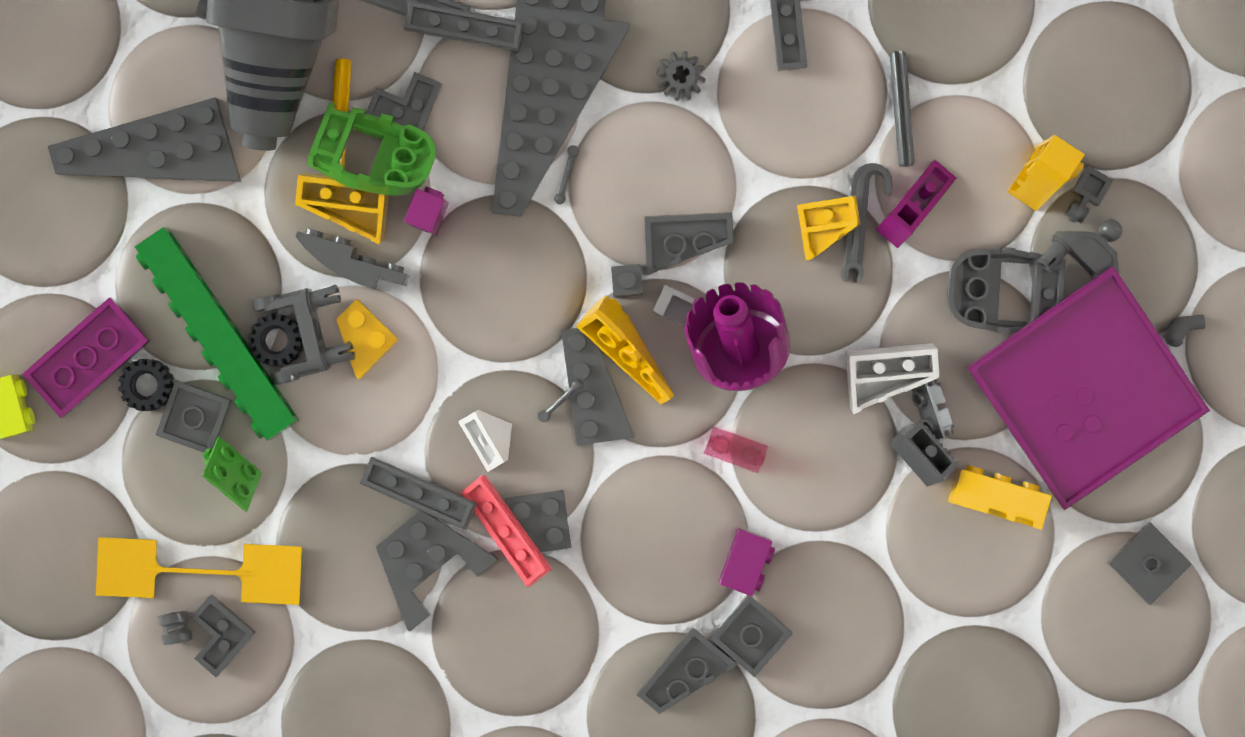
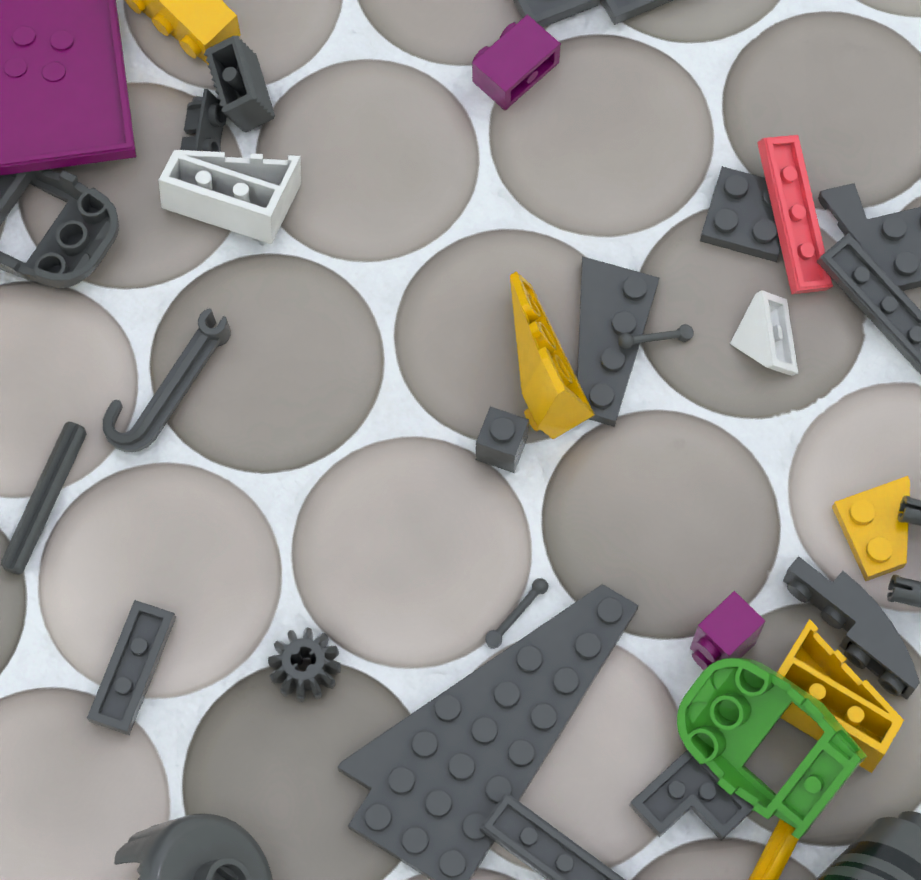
camera: 150 degrees left, 20 degrees down
(673, 305) = (457, 390): light grey panel -> none
(684, 236) = (404, 466): dark grey wing -> none
(736, 449) = (463, 191): clear pink hinge -> none
(738, 337) = (395, 296): magenta piece -> none
(826, 223) = (212, 398): yellow wing -> none
(916, 204) = (92, 370): magenta slope -> none

